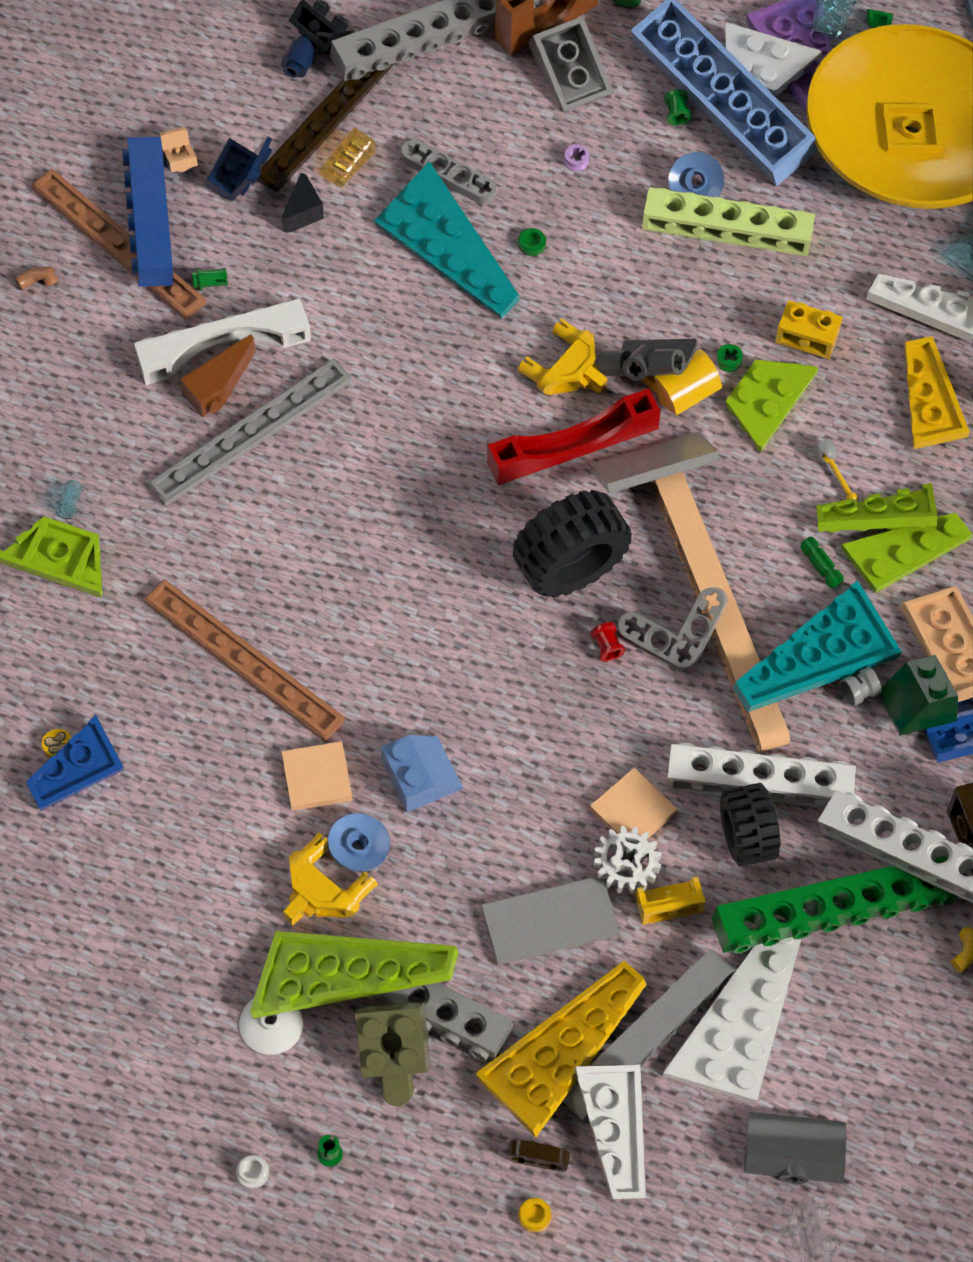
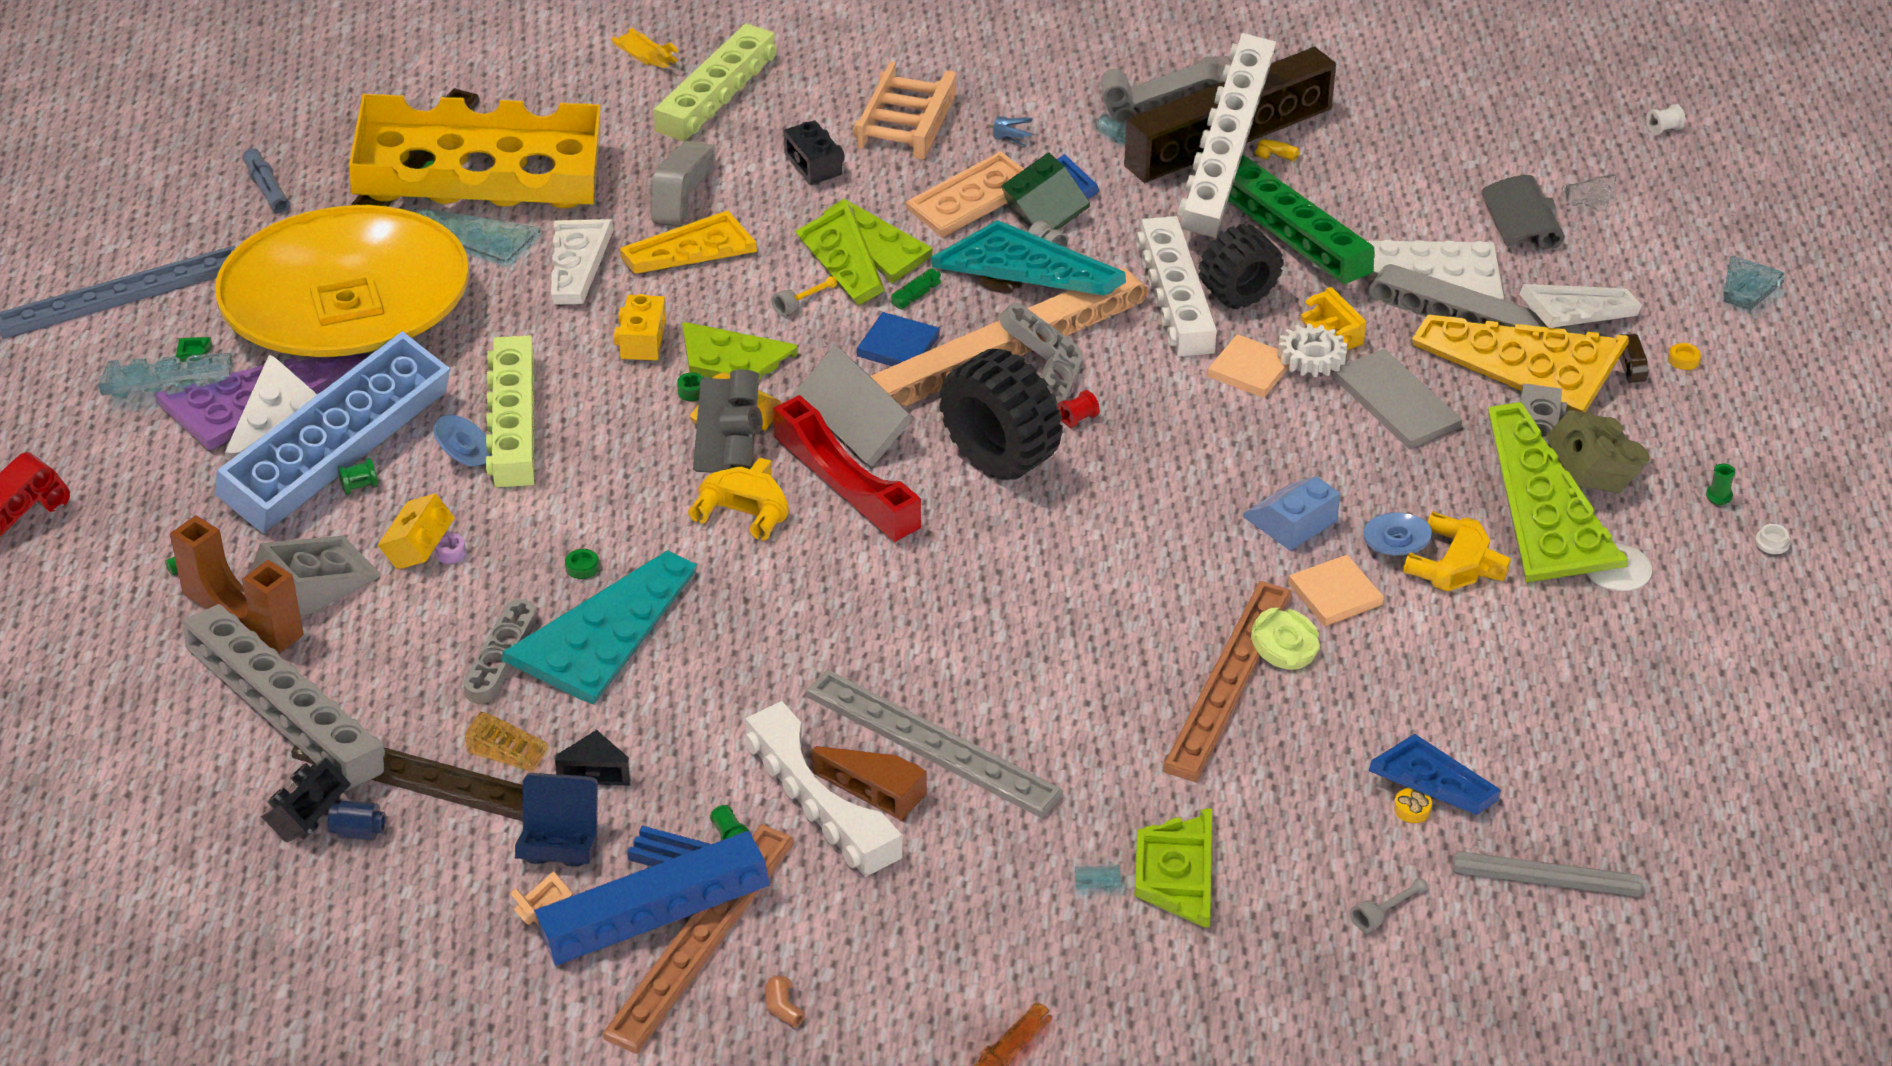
camera: 105 degrees left, 20 degrees down
(196, 232) = (662, 842): none -> blue tile
(267, 711) = (1285, 638): none -> yellowish green tile
(590, 130) = (416, 531): none -> yellow brick
(749, 529) = (896, 339): none -> blue tile

